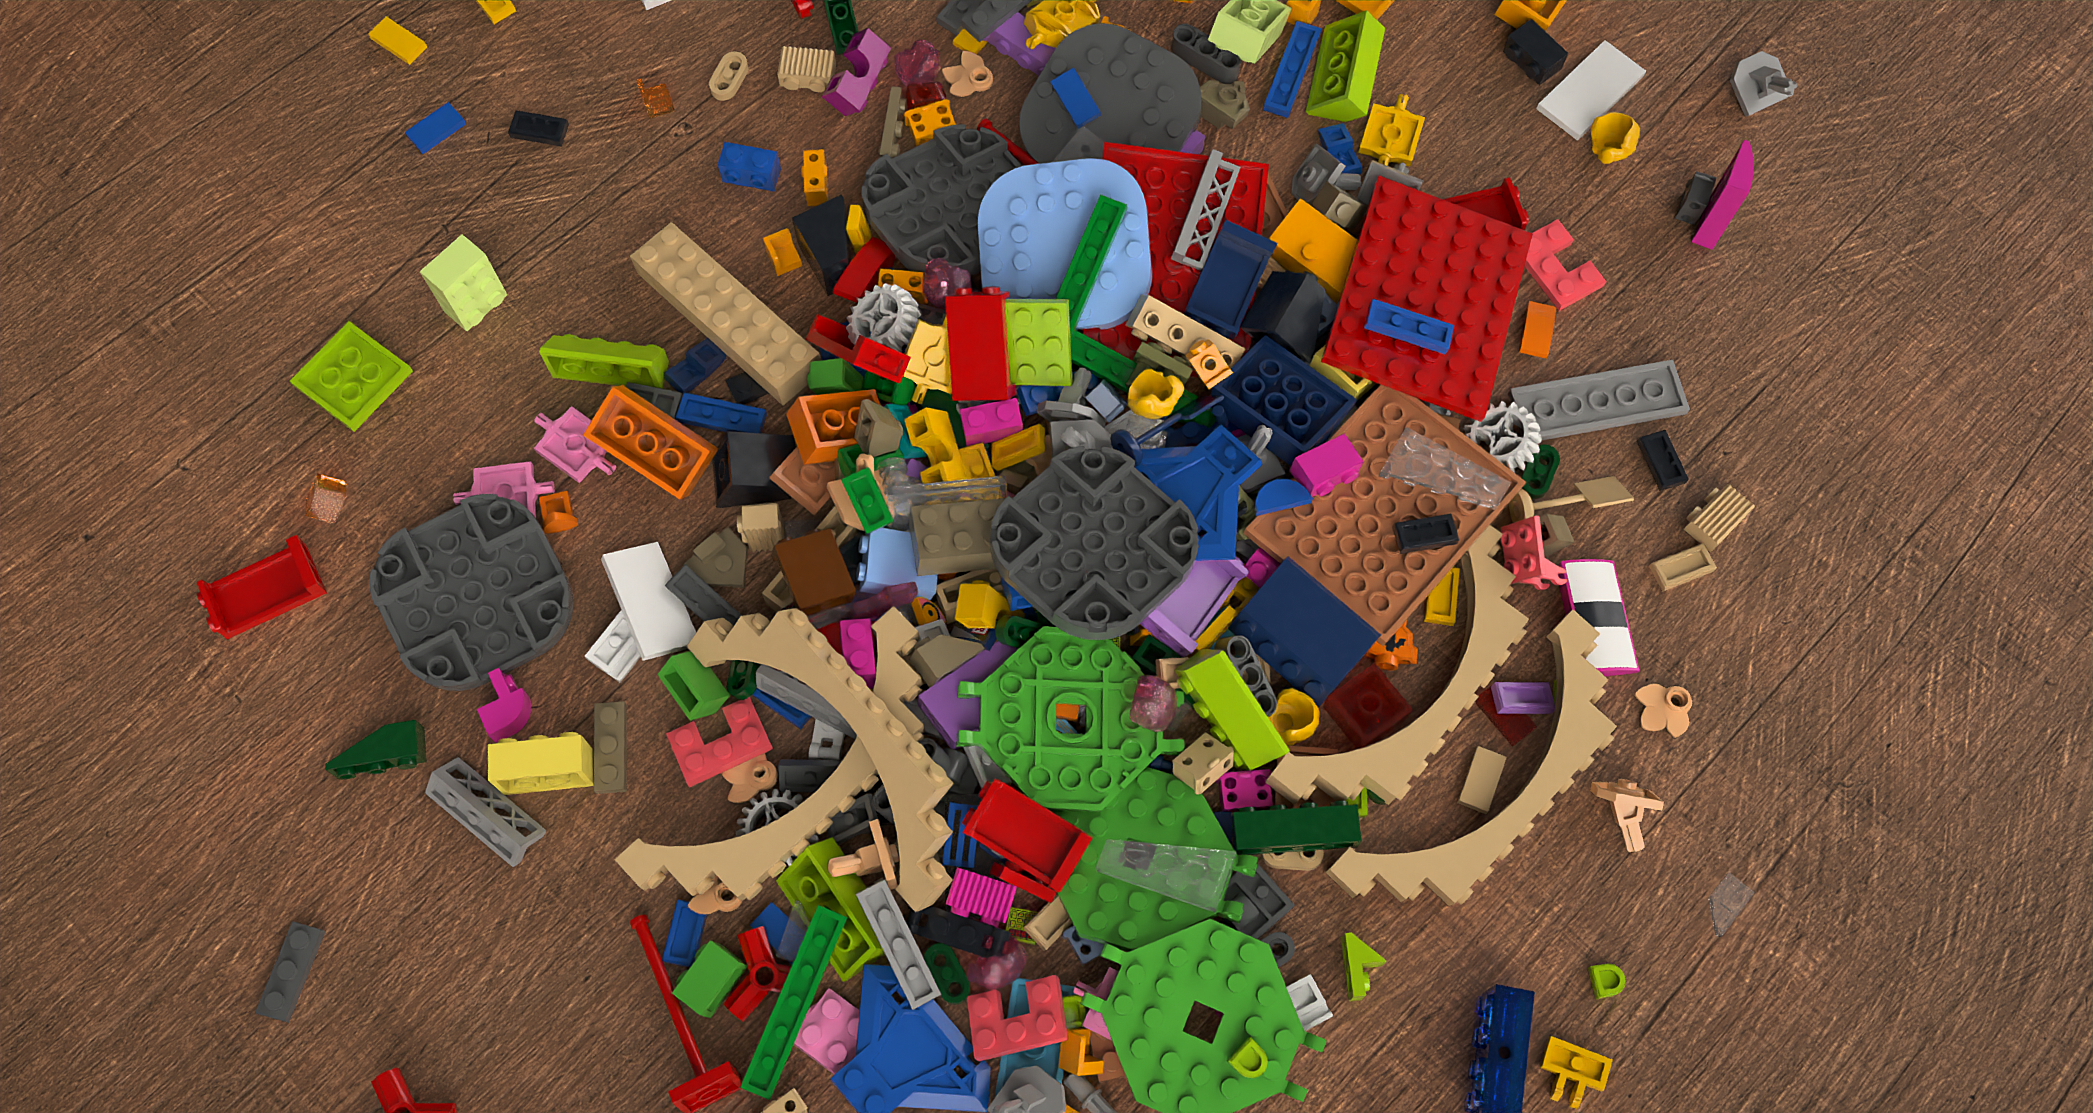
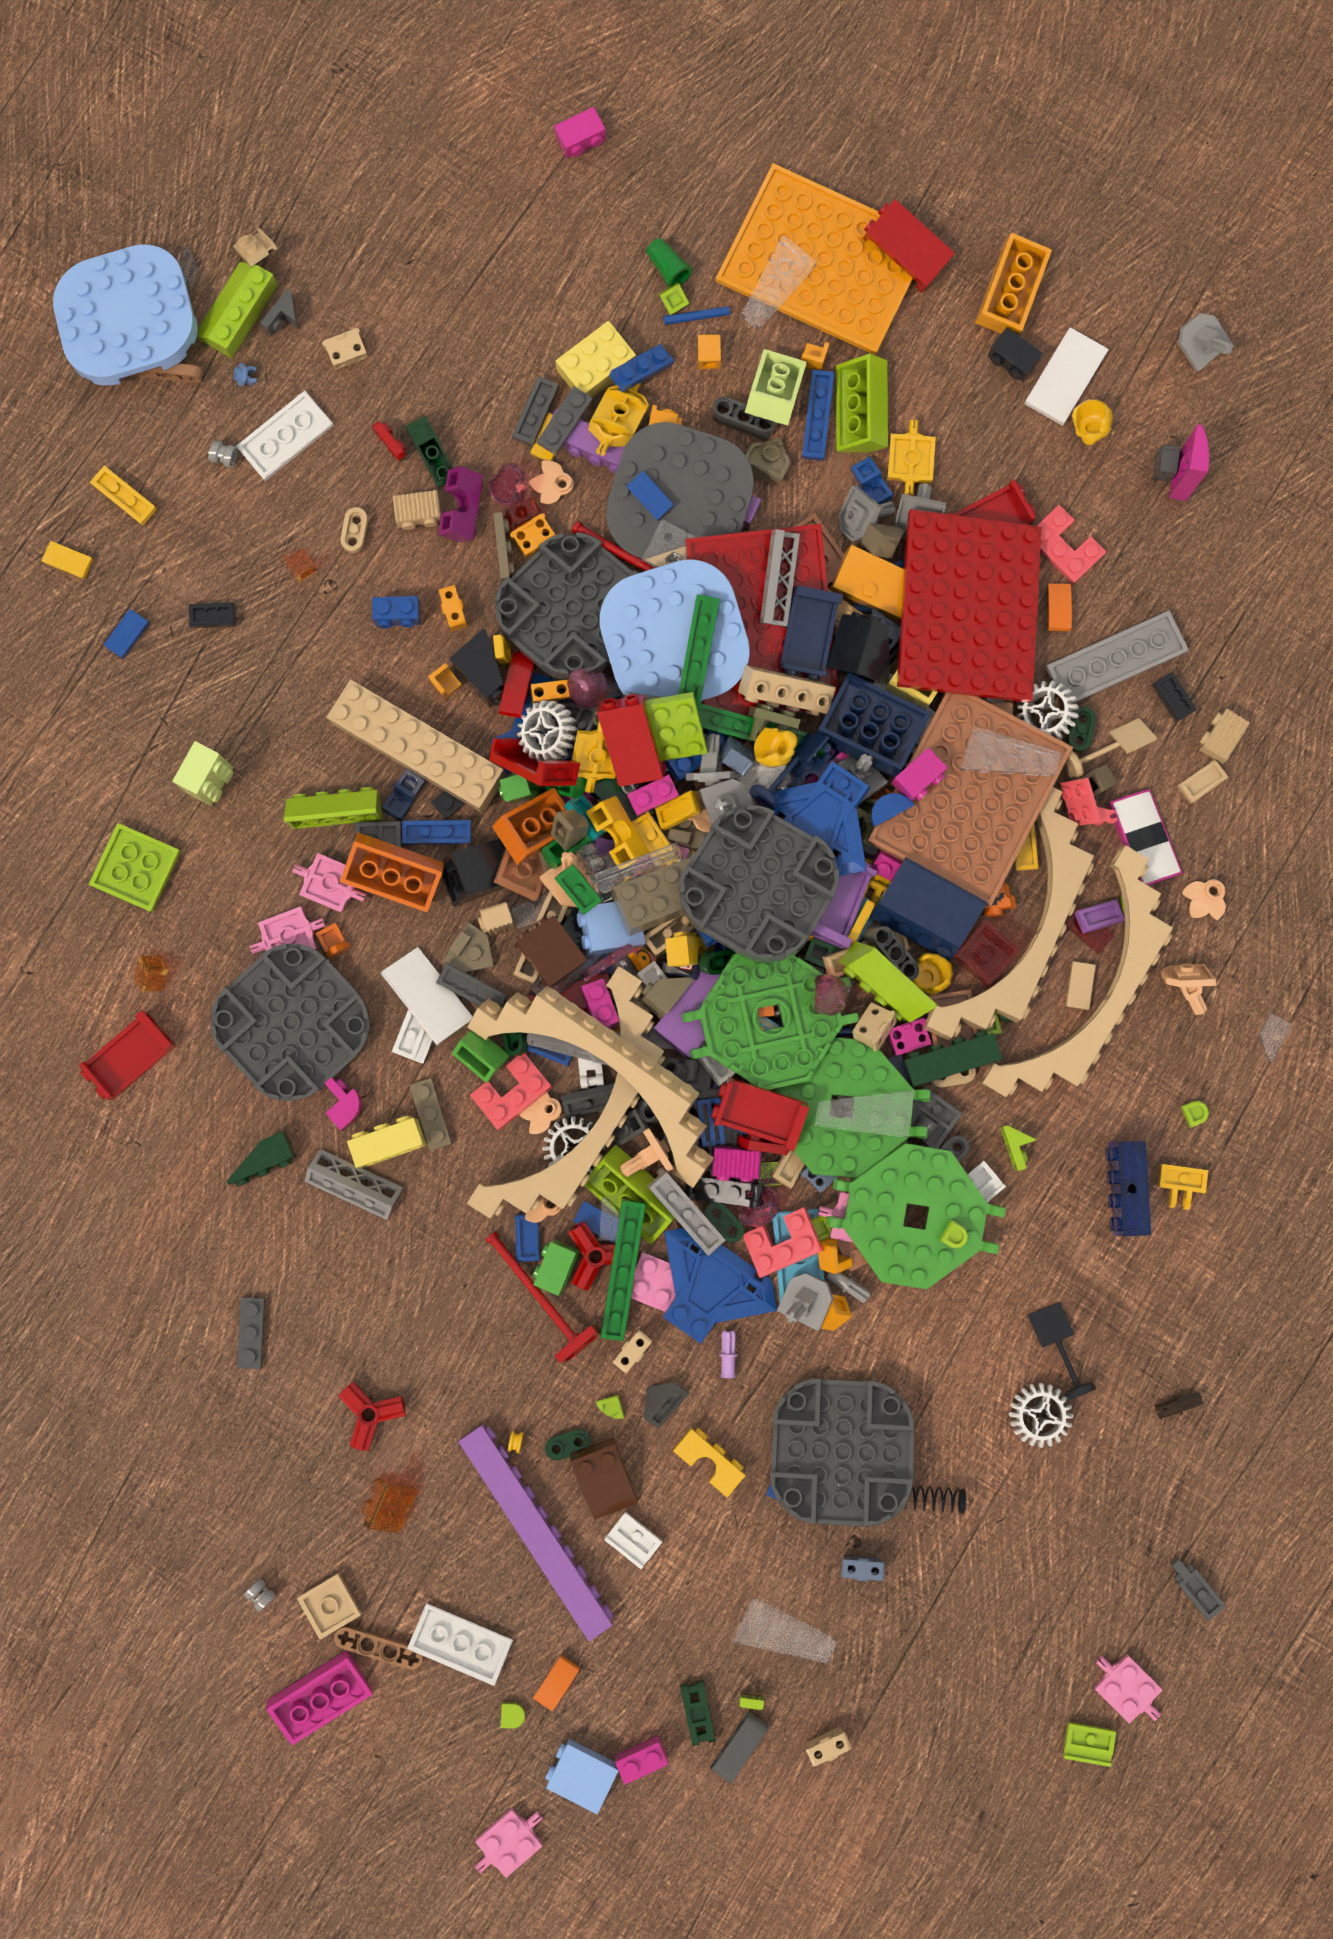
camera: 10 degrees left, 15 degrees up
(1215, 372) = (810, 711): light orange brick -> none
(1408, 326) = (960, 643): blue plate -> none
(1425, 533) = (1005, 812): black plate -> none

